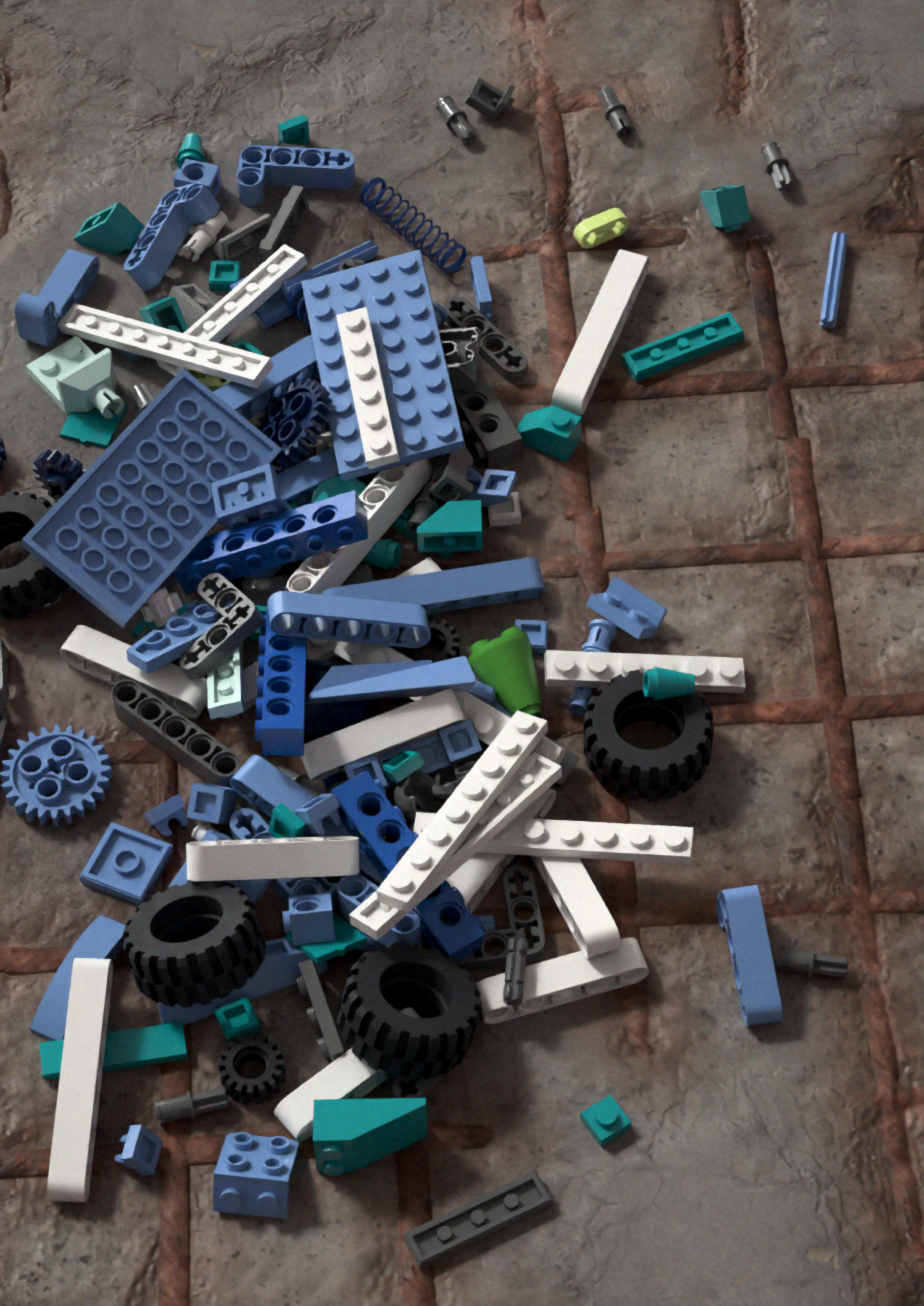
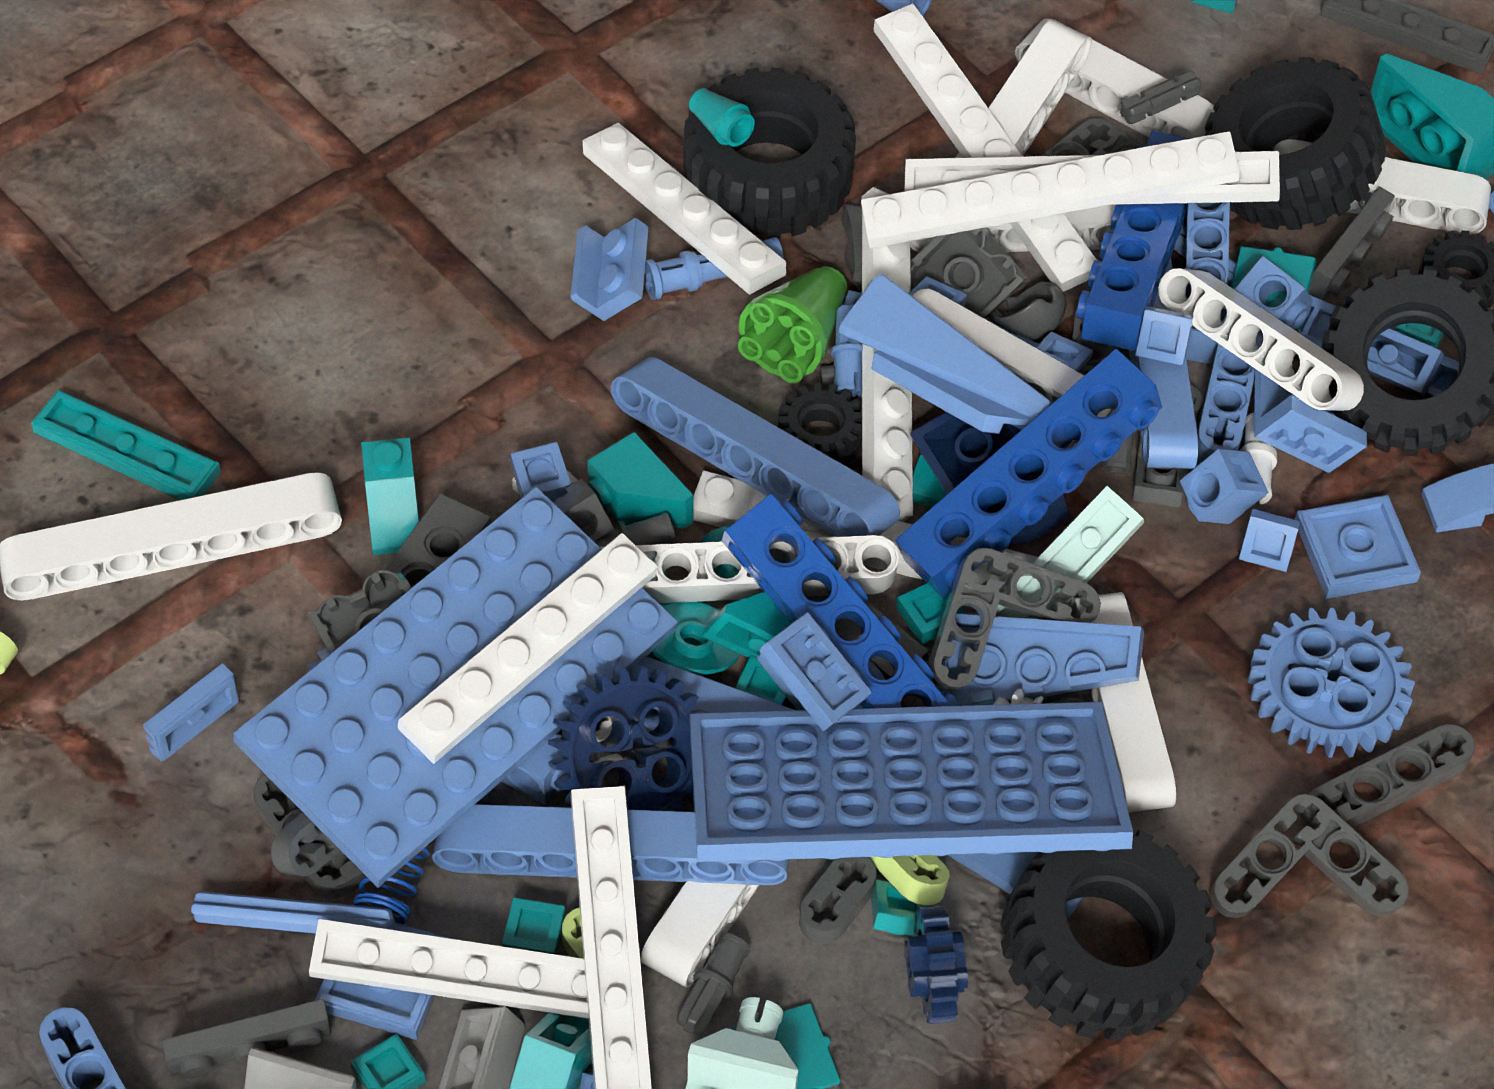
camera: 130 degrees left, 0 degrees up
(170, 724) = (1162, 612): dark grey beam -> none
(285, 823) = (1201, 370): teal tile -> none
(348, 619) = (896, 461): medium blue beam -> none
(402, 765) = (1023, 318): teal tile -> none
(448, 253) = (157, 795): blue piece -> none
(488, 336) = (268, 665): dark grey beam -> none
(537, 633) = (712, 353): medium blue tile -> none

